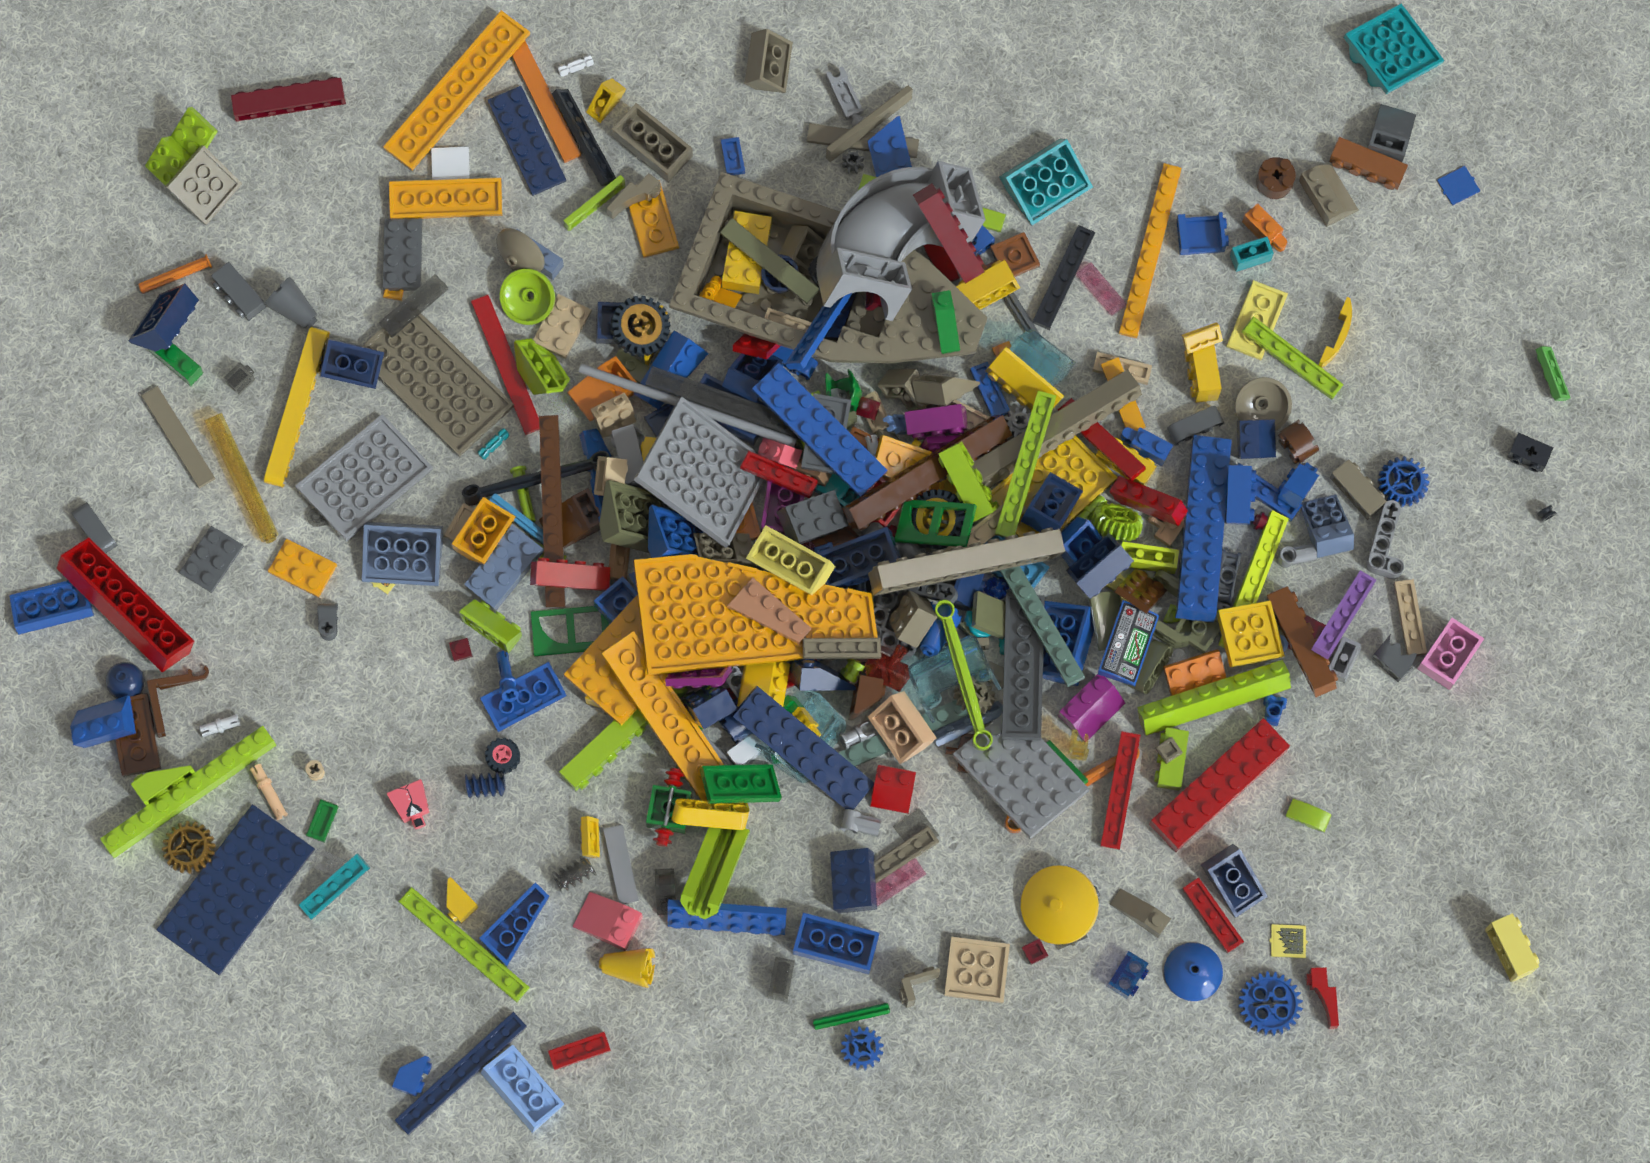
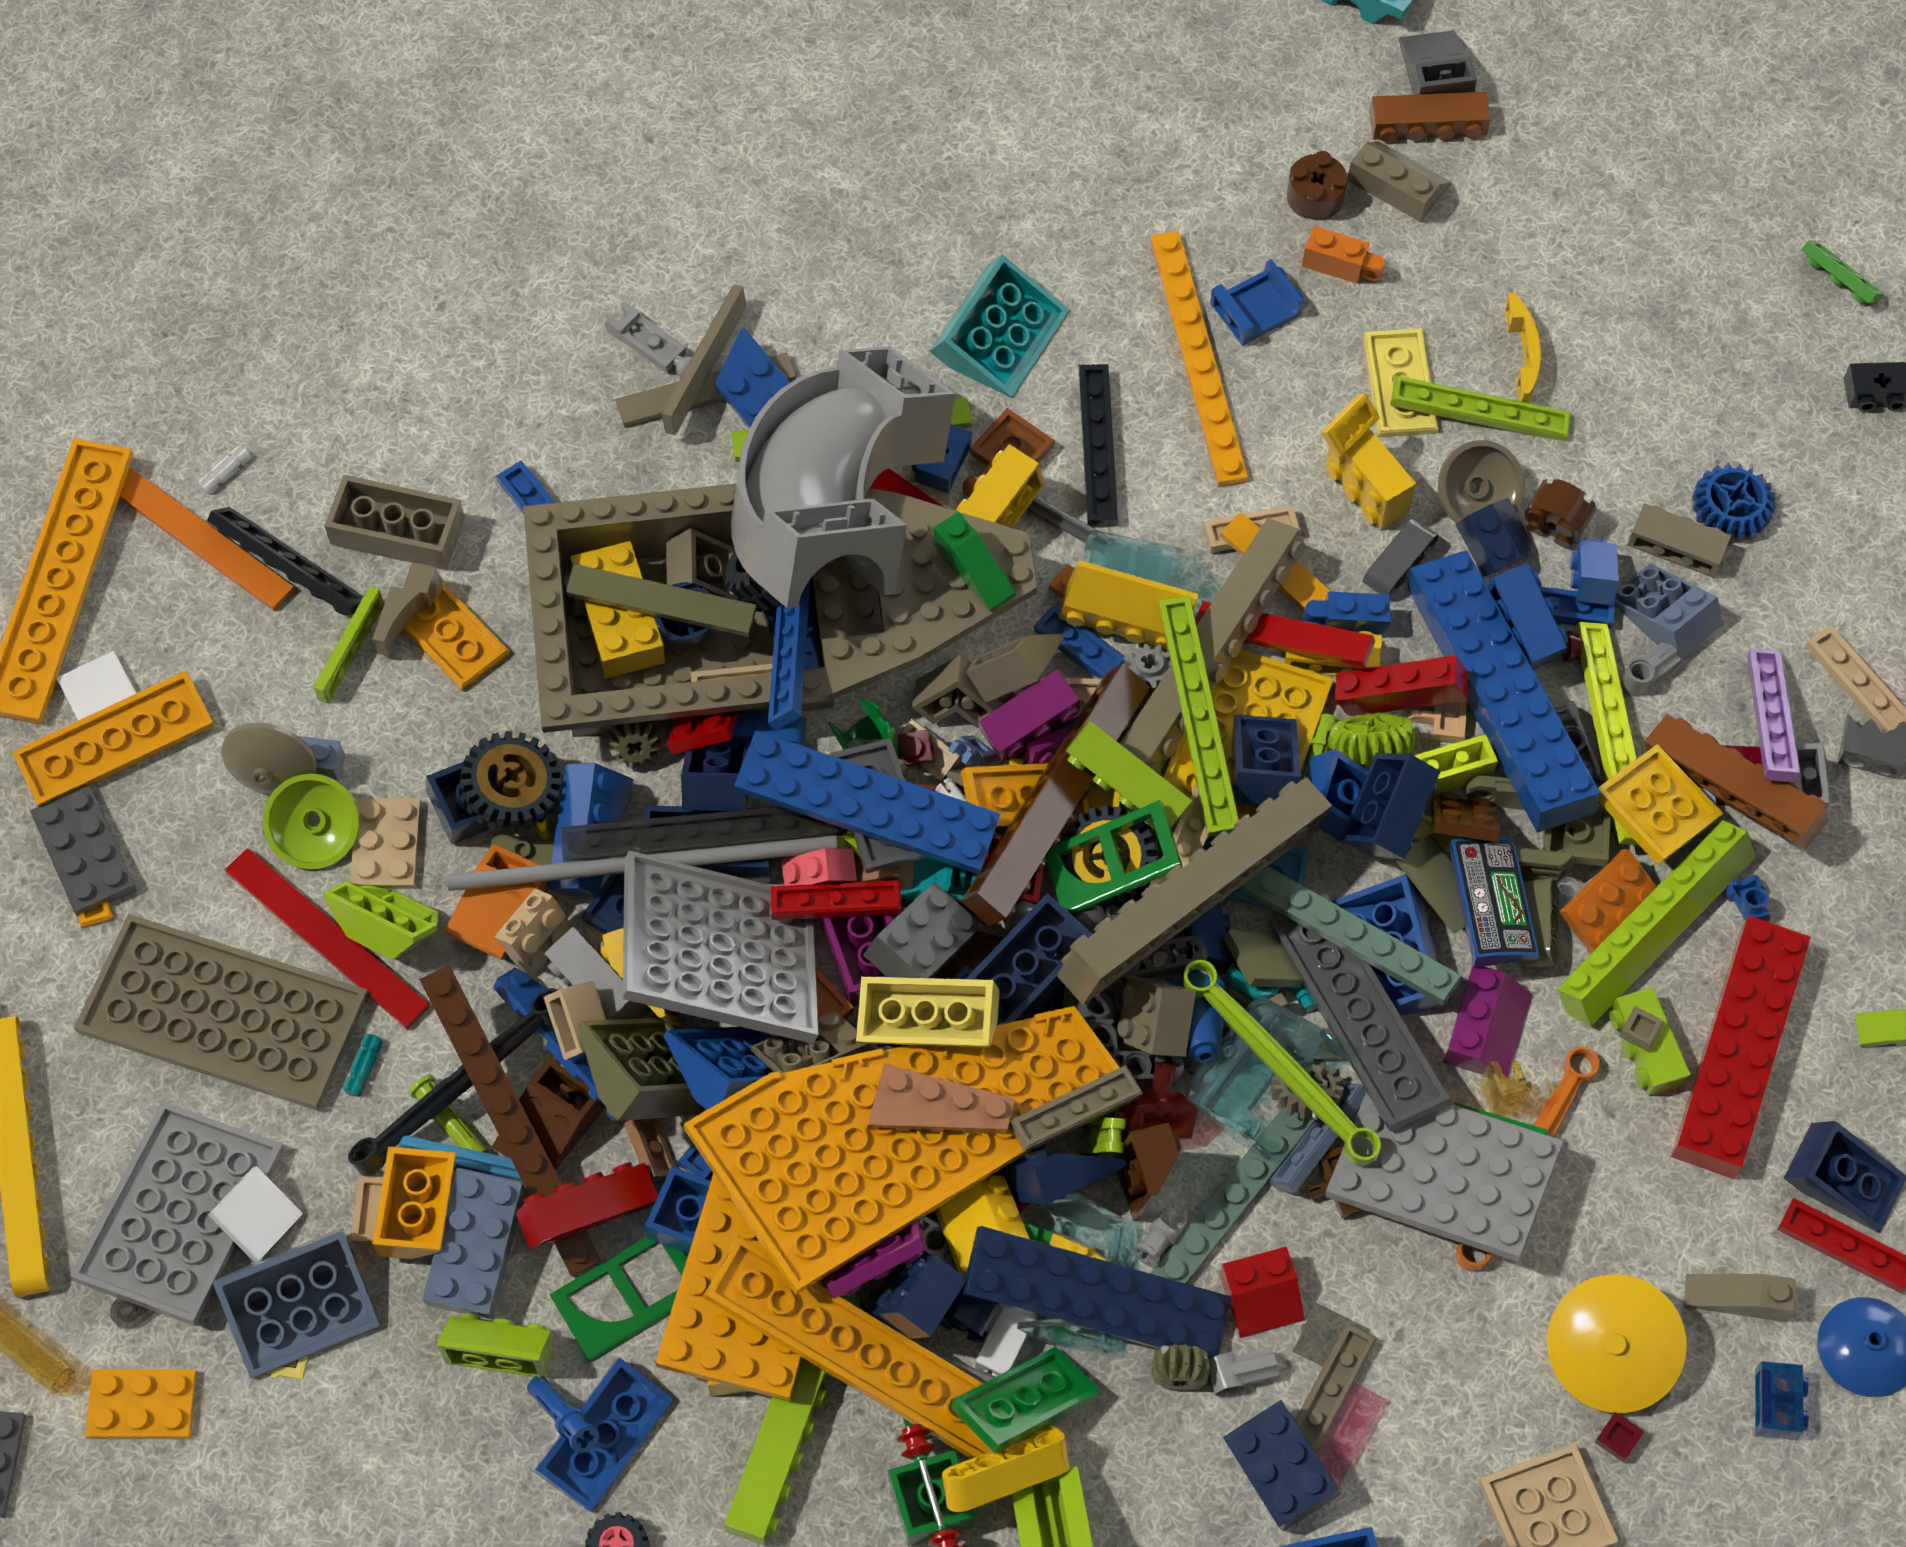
camera: 25 degrees left, 10 degrees down
(327, 618) = (221, 1463): dark grey piece -> none
(351, 363) = (75, 1046): dark blue slope -> none
(402, 498) = (255, 1214): none -> white tile
(413, 305) = (136, 914): clear smoke plate -> none
(460, 649) = (465, 1409): dark red plate -> none
(526, 140) = (201, 604): dark blue plate -> none
(605, 99) = (293, 495): yellow slope -> none
(718, 334) = (634, 742): none -> olive gear
(720, 295) = (594, 680): light orange hinge -> none
(768, 61) = (511, 342): dark tan slope -> none
(829, 806) = (1180, 1367): none -> olive gear
(849, 164) = (707, 422): dark grey gear -> none
(872, 301) = (845, 583): dark red tile -> none
(901, 727) = (1226, 1189): light nougat slope -> none
(948, 232) = (913, 430): dark red brick -> none
(996, 587) = (1248, 915): clear blue gear -> none
(1101, 289) = (1159, 437): clear pink tile -> none
(1120, 790) = (1604, 1125): red plate -> none
(1170, 615) = (1524, 833): lime tile -> none
(1251, 254) = (1343, 296): teal brick -> none
(1384, 537) = (1759, 588): light grey beam -> none
(1458, 185) = (1564, 94): blue piece -> none

